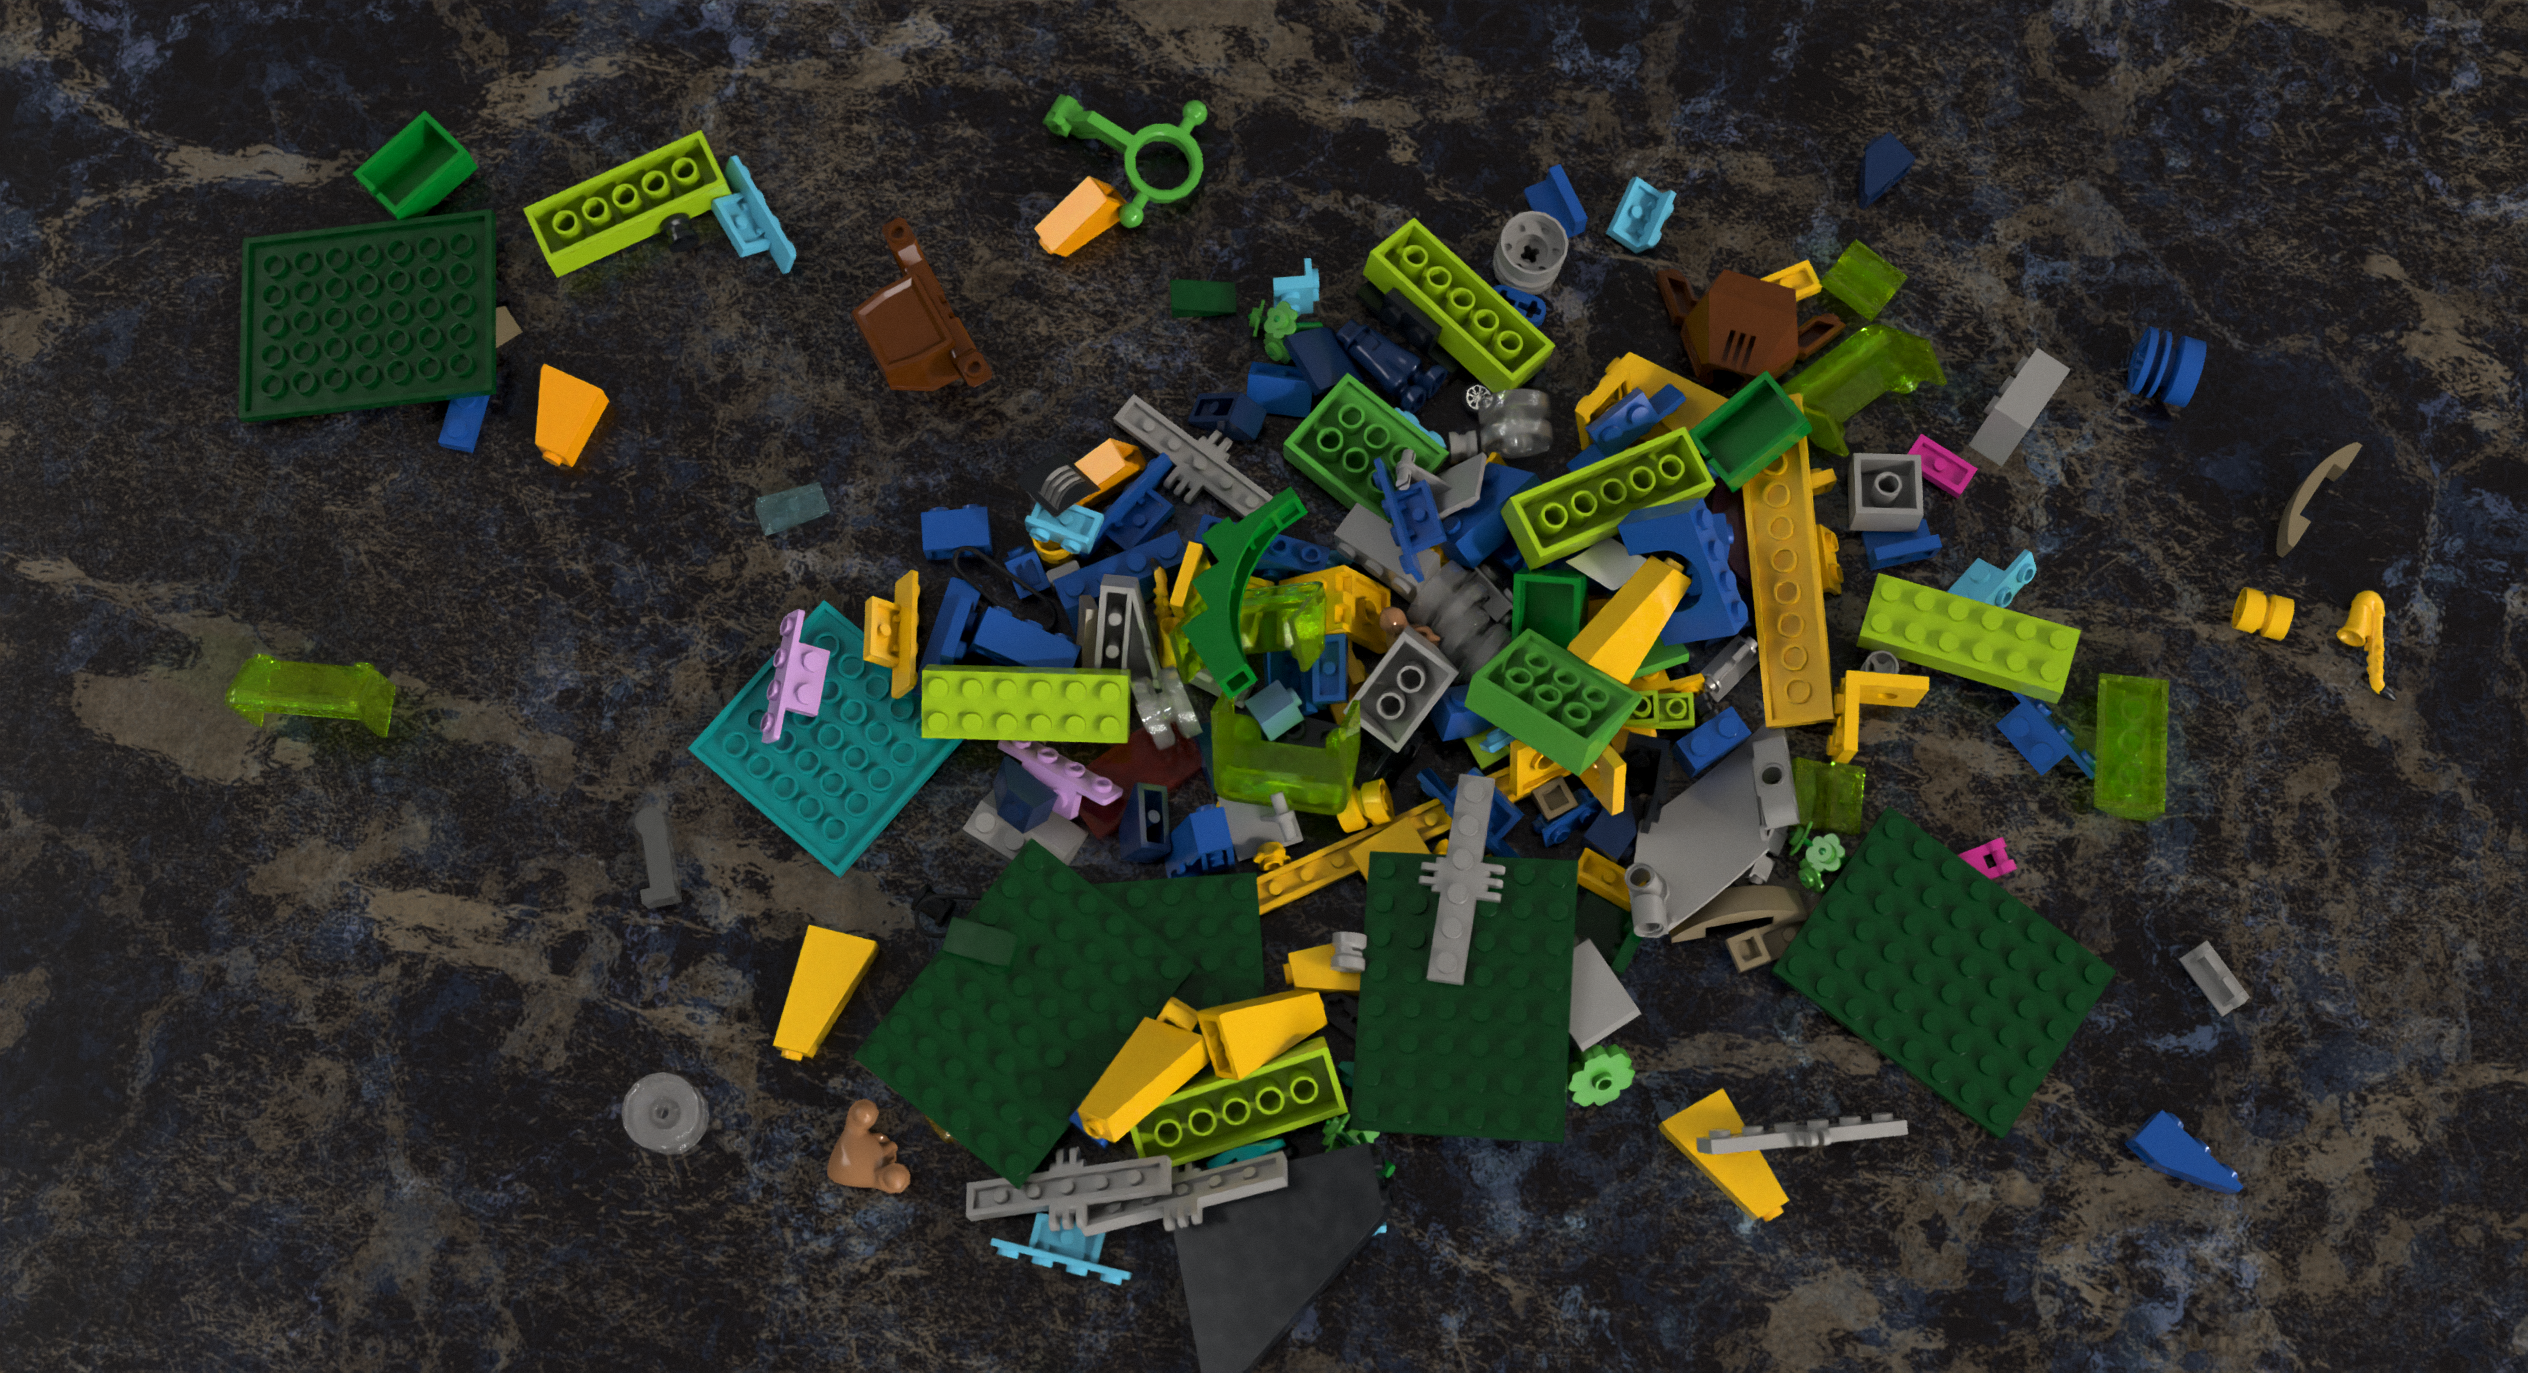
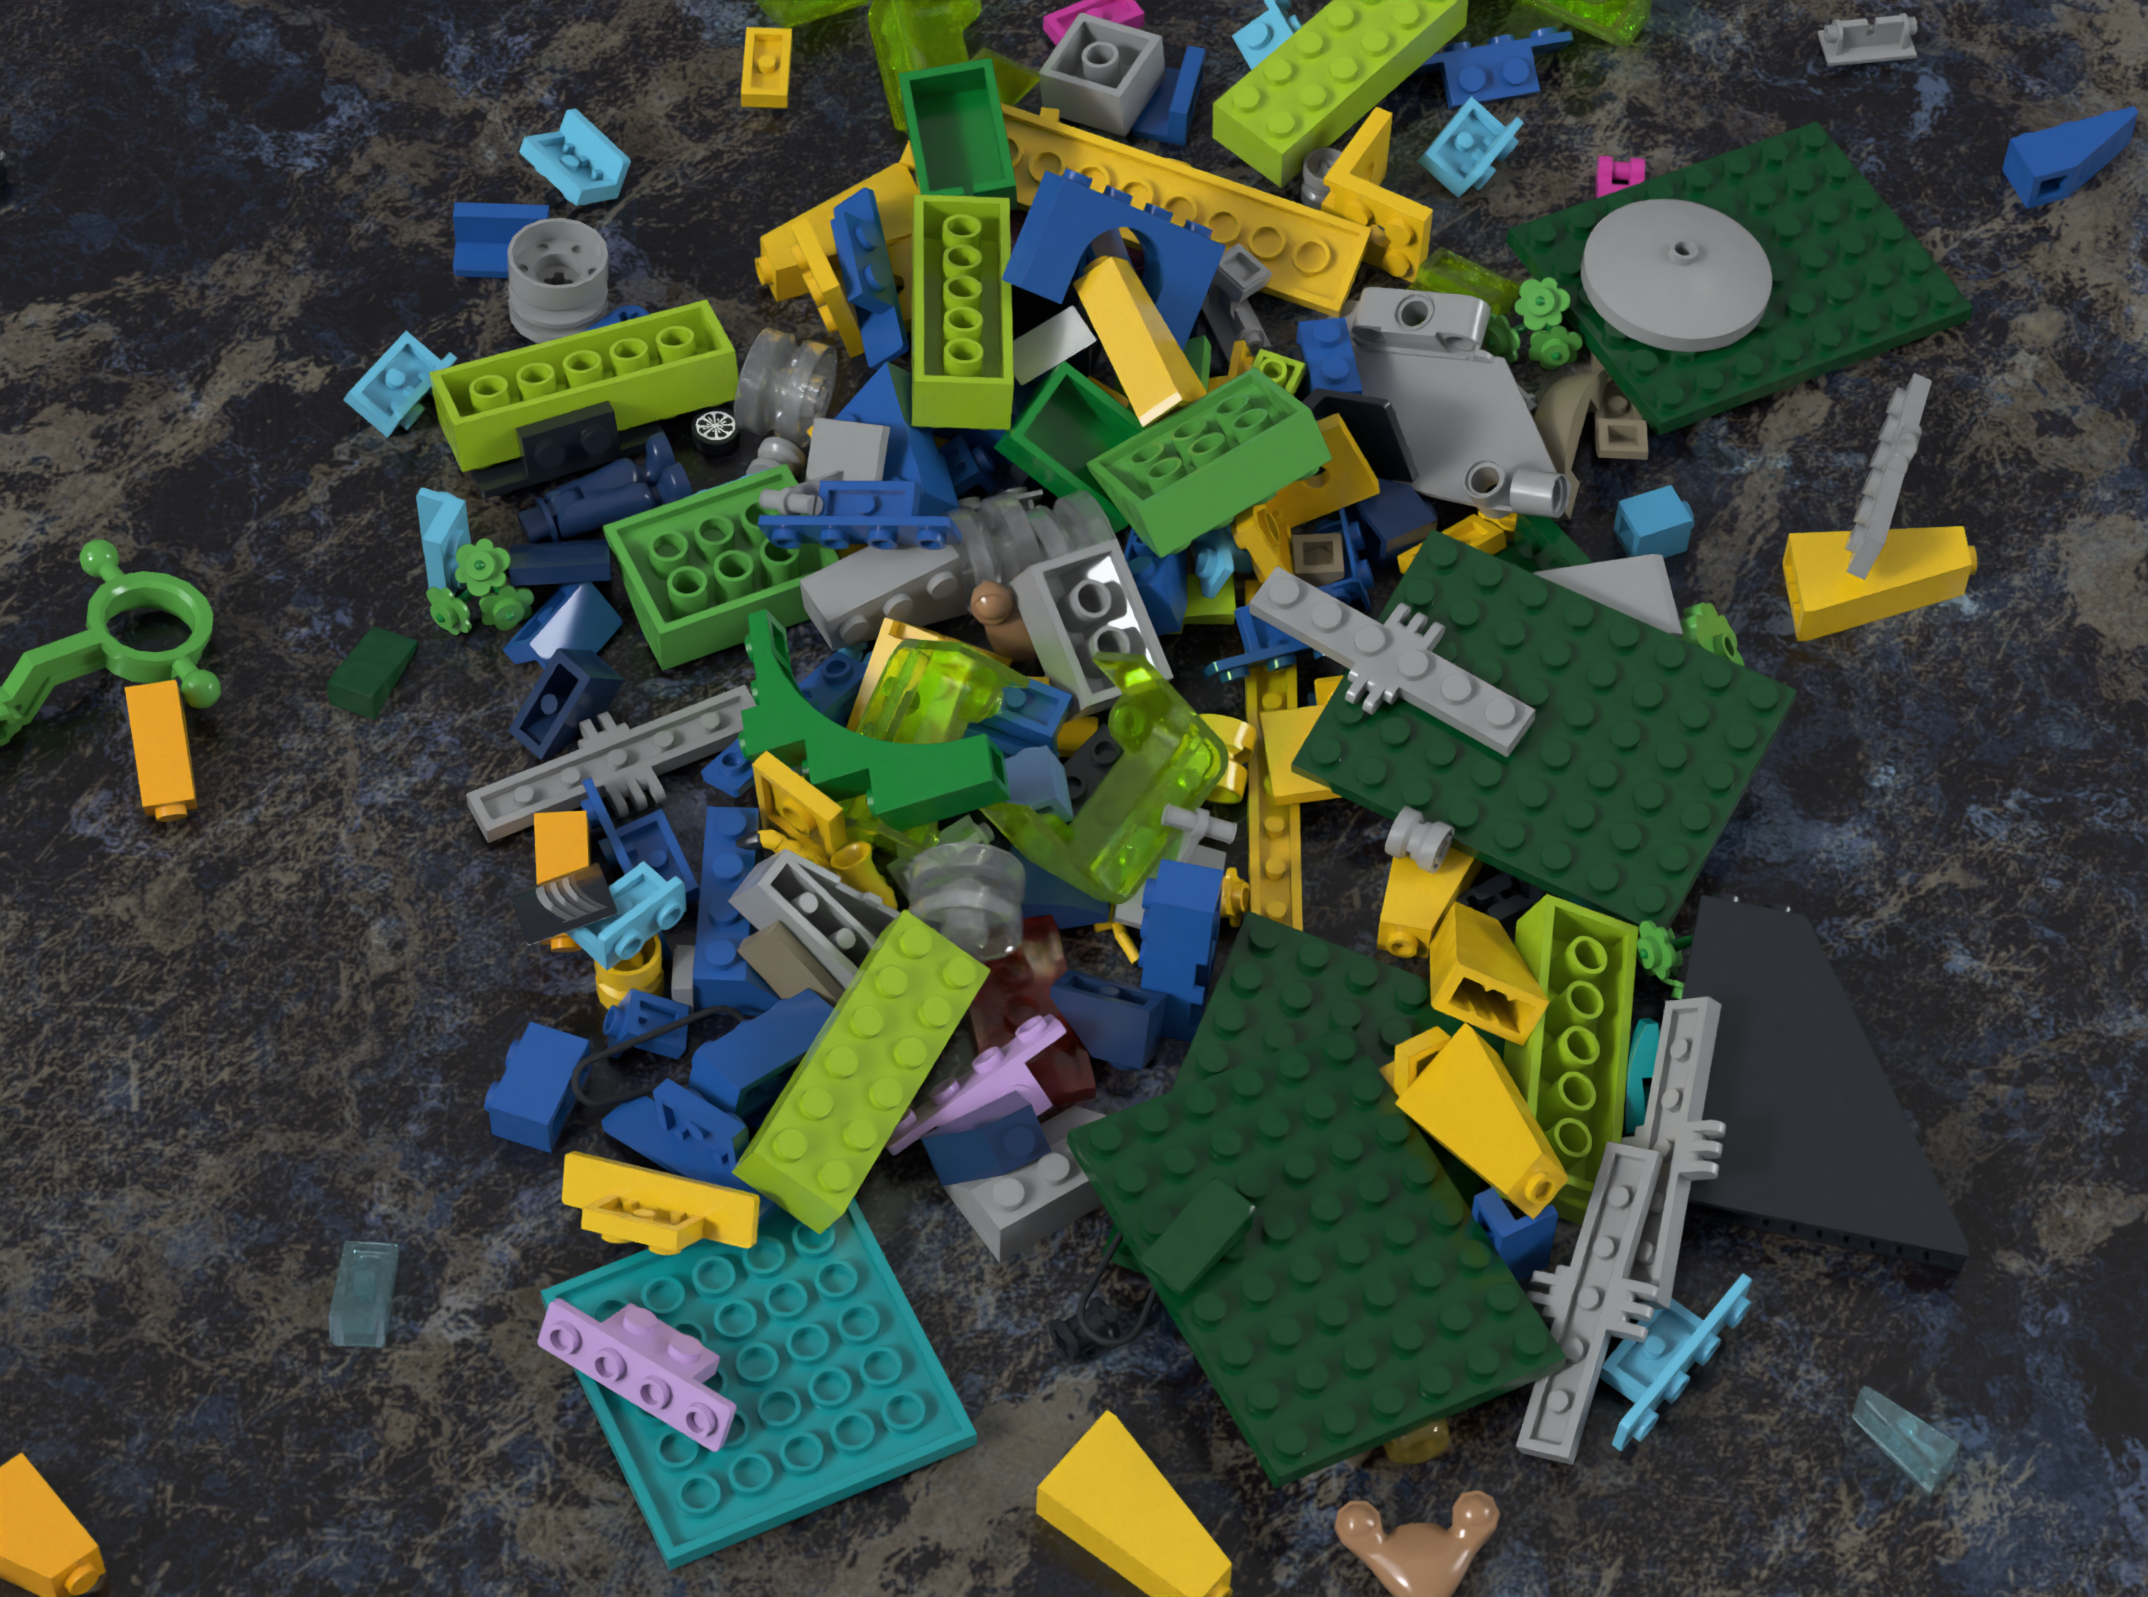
camera: 70 degrees left, 20 degrees down
(913, 326) = (216, 983): reddish brown helmet -> none
(1409, 201) = (397, 385): none -> medium azure bracket
(1696, 998) = (1654, 523): none -> dark azure brick
(1742, 325) = (794, 115): reddish brown helmet -> none
(1754, 651) = (1240, 273): none -> light grey tile
(1873, 937) = (1676, 275): none -> light grey dish
(1960, 750) = (1468, 146): none -> medium azure bracket

